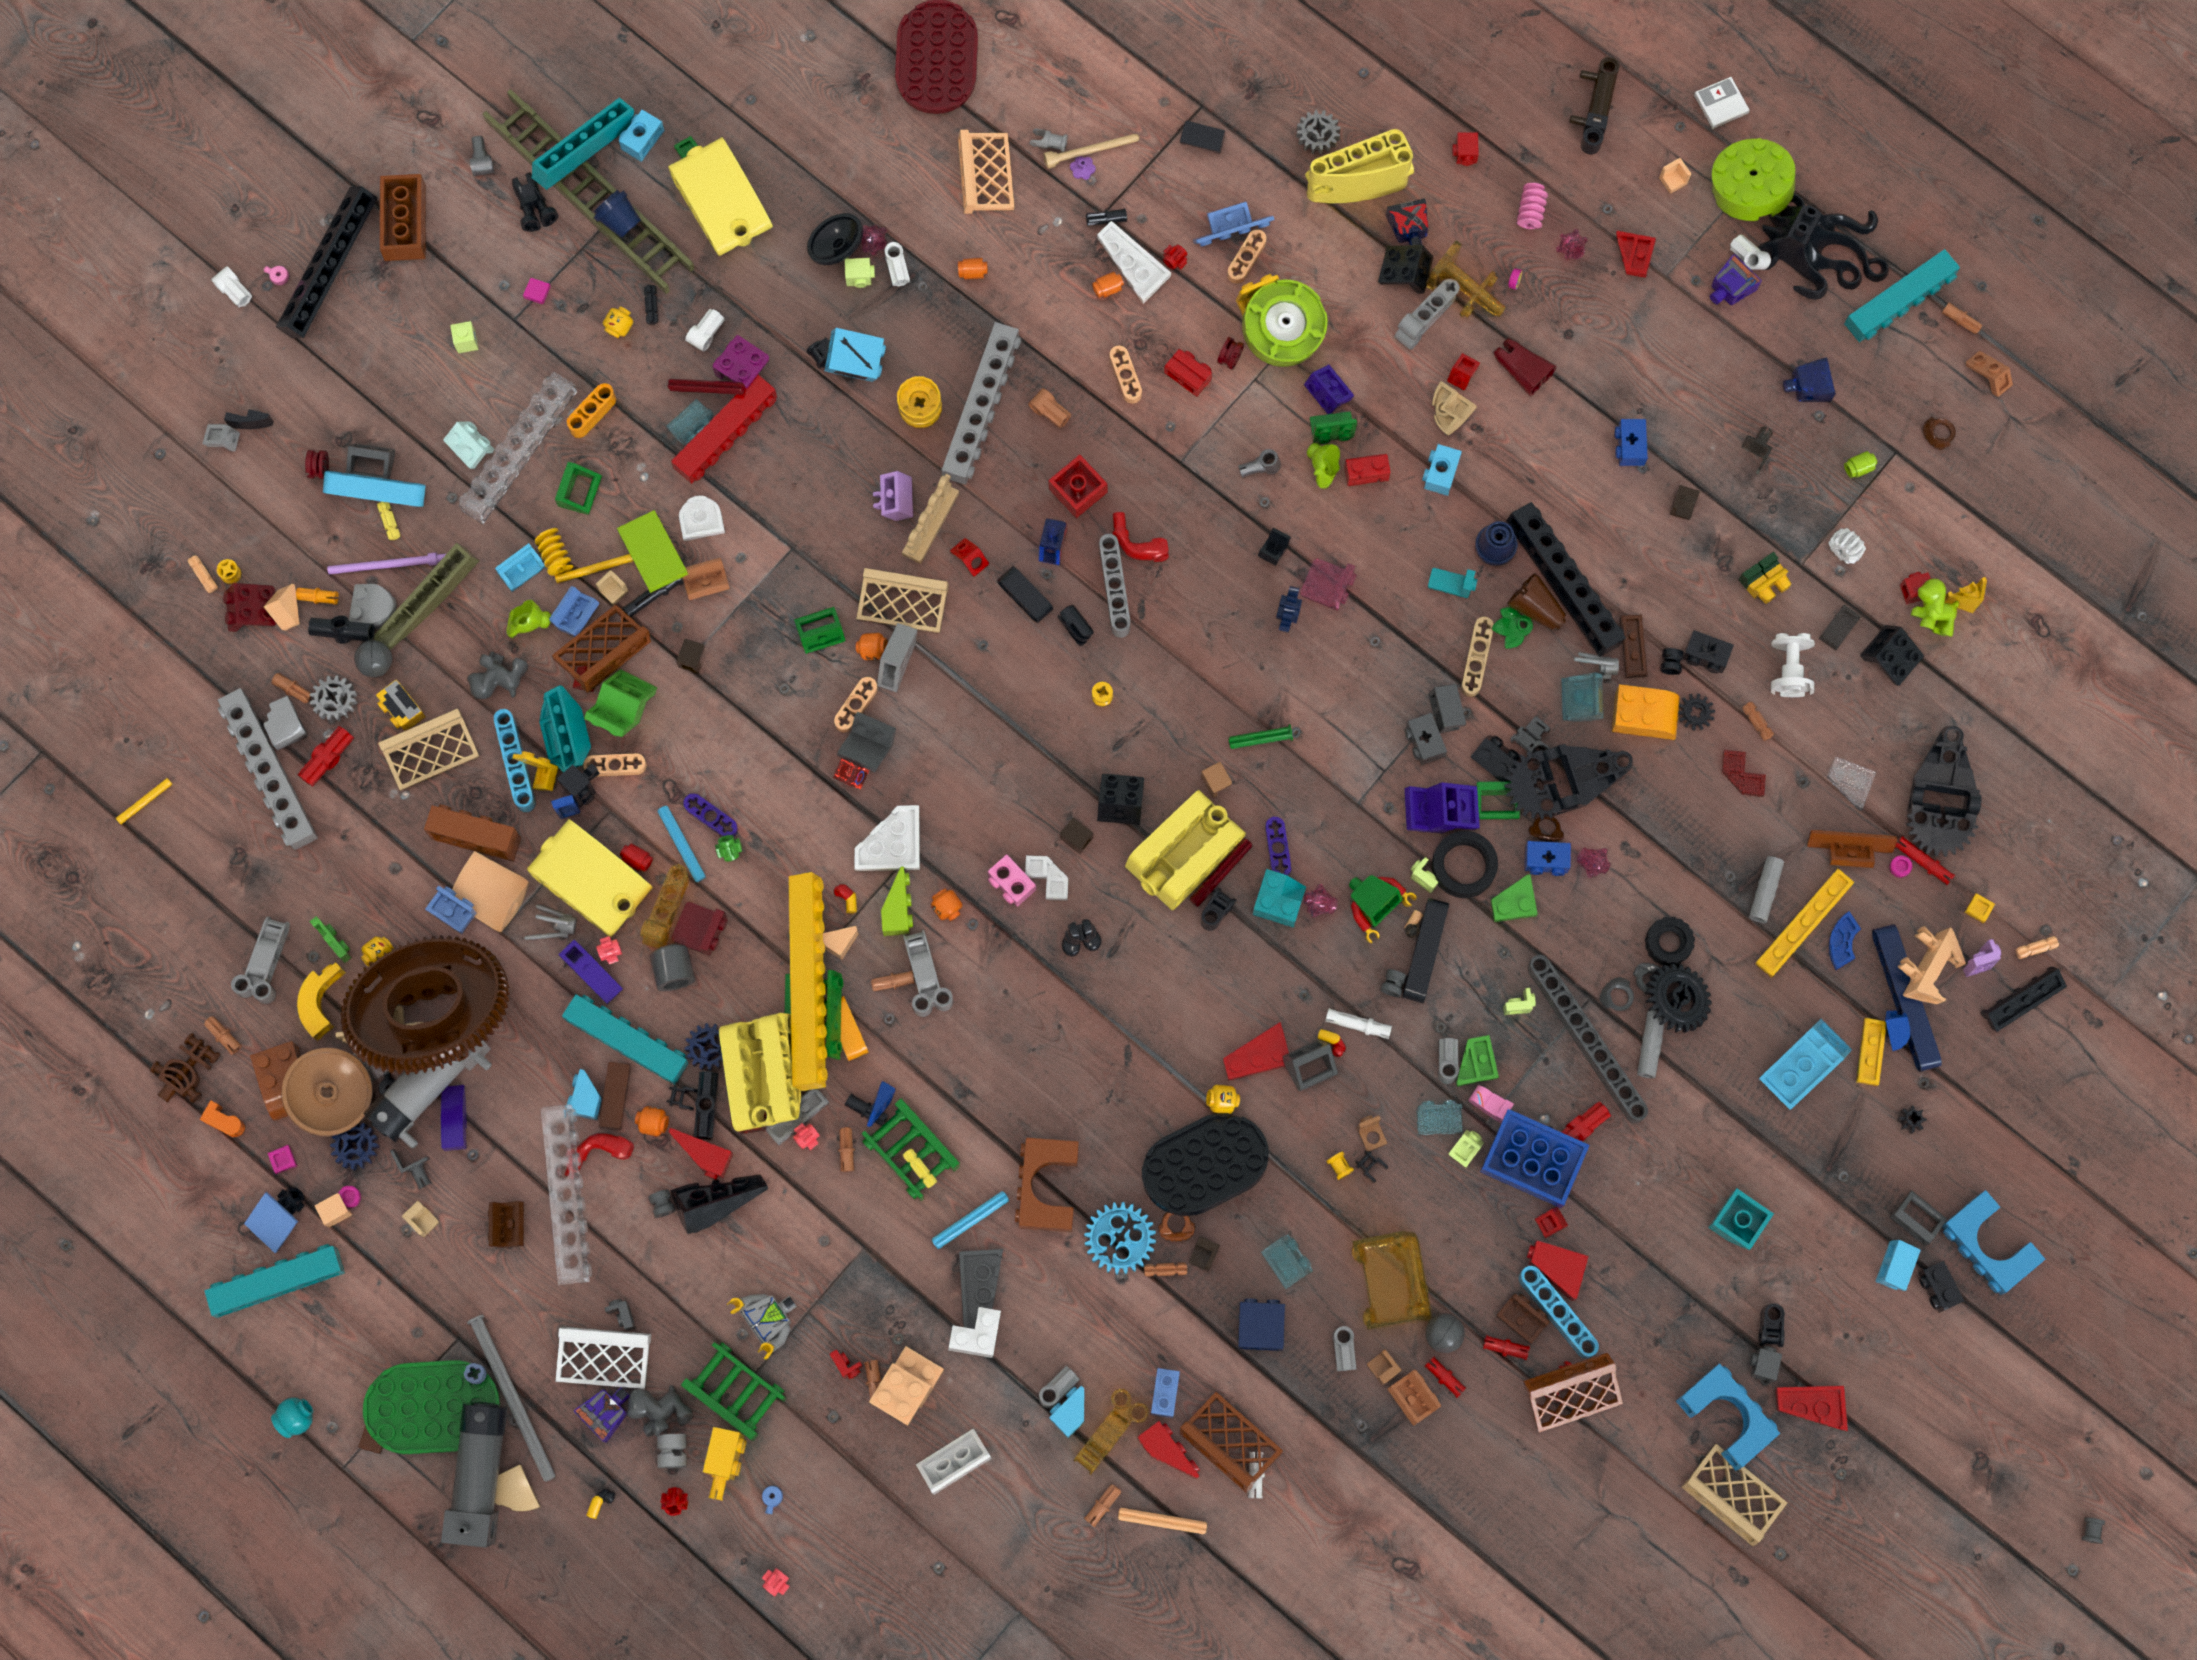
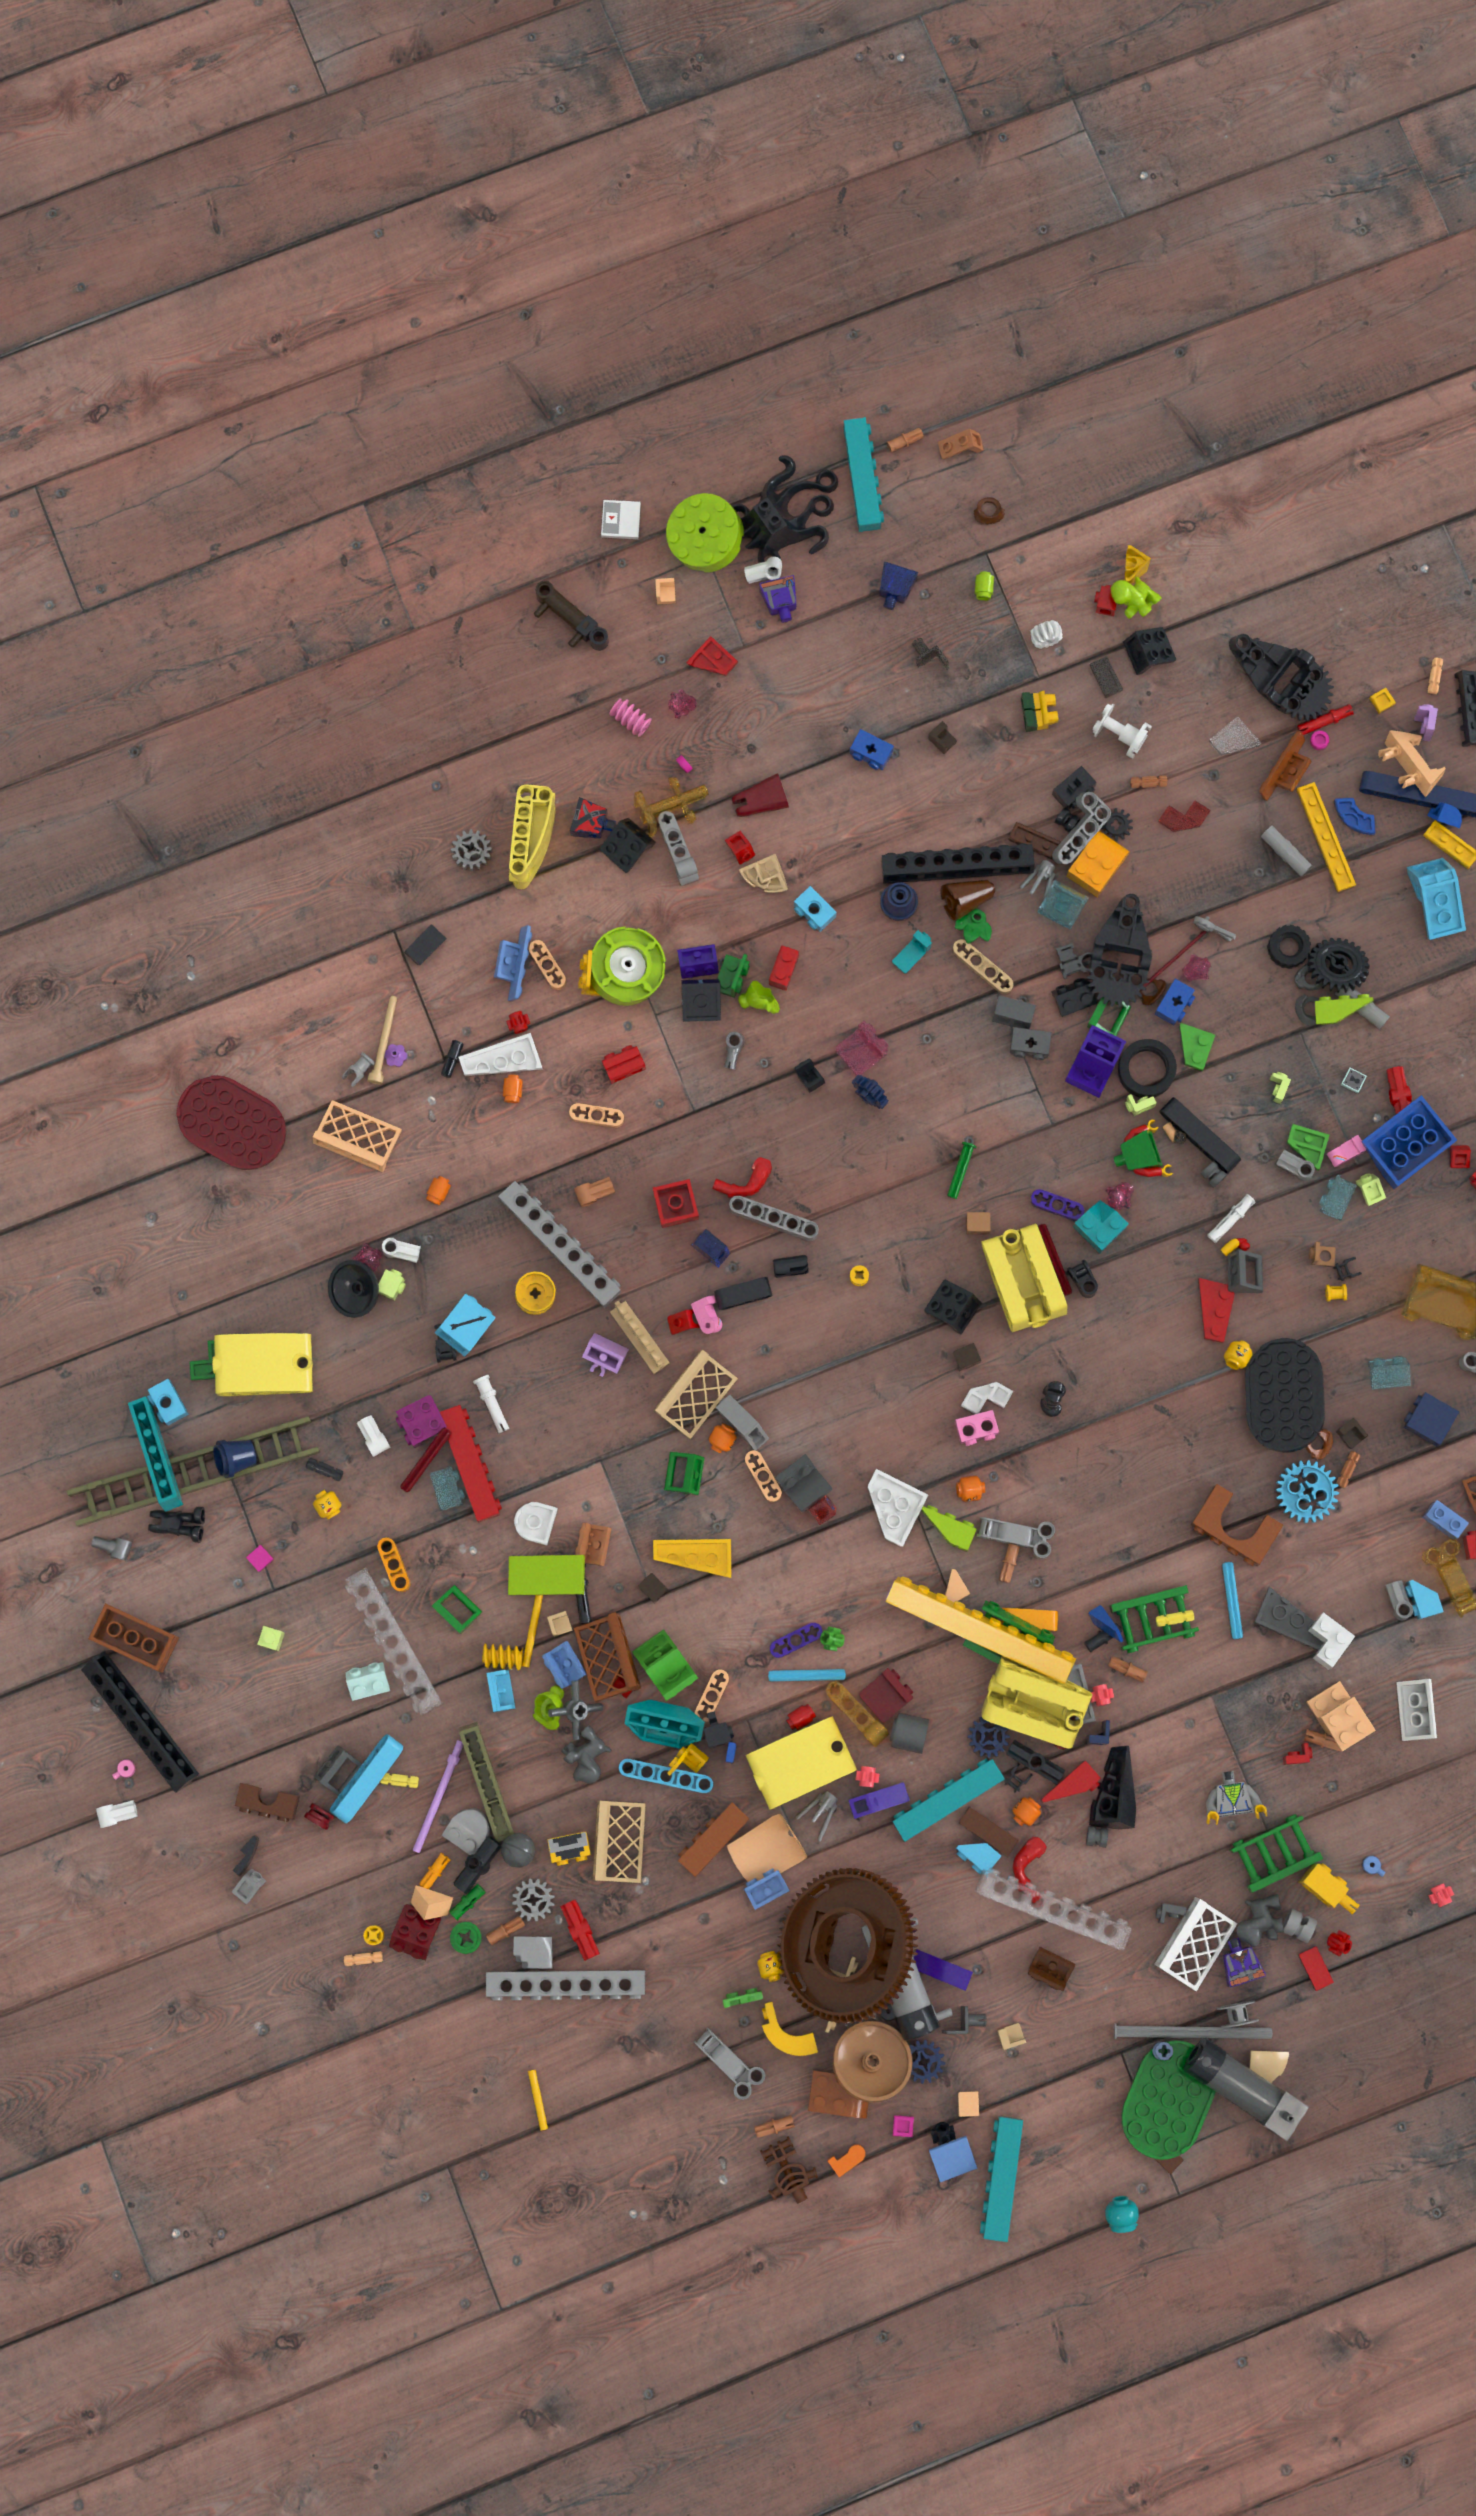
camera: 60 degrees left, 5 degrees up
(262, 649) = (456, 1939): none -> green gear
(302, 640) = (467, 1902): none -> green pin
(303, 396) = (249, 1799): none -> reddish brown arch
(351, 1196) = (961, 2084): dark pink tile -> none
(534, 635) = (575, 1709): none -> dark grey bar
(544, 1435) = (1237, 2014): none -> light grey piece
(597, 1501) = (1306, 1996): arm -> none
(638, 1491) = (1315, 1968): none -> red tile
(746, 682) = (701, 1555): none -> yellow wing
(764, 1158) = (1100, 1739): none -> dark blue panel
(799, 413) = (488, 1395): none -> white pin
(848, 895) = (921, 1562): arm -> none
(985, 570) = (706, 1315): none -> bright pink leg
(1230, 353) = (626, 1022): dark red wheel -> none
(1290, 408) = (701, 1000): none -> black container
(1466, 148) = (551, 741): red brick -> none
(1569, 1075) = (1353, 1080): none -> tile
(1588, 1050) = (1341, 1046): dark grey beam -> none
(1590, 835) = (1174, 958): none -> dark red piece
(1627, 1017) = (1334, 1011): none -> lime slope
(1643, 852) = (1207, 926): none -> light grey piece
(1664, 677) = (1079, 830): none -> light grey beam

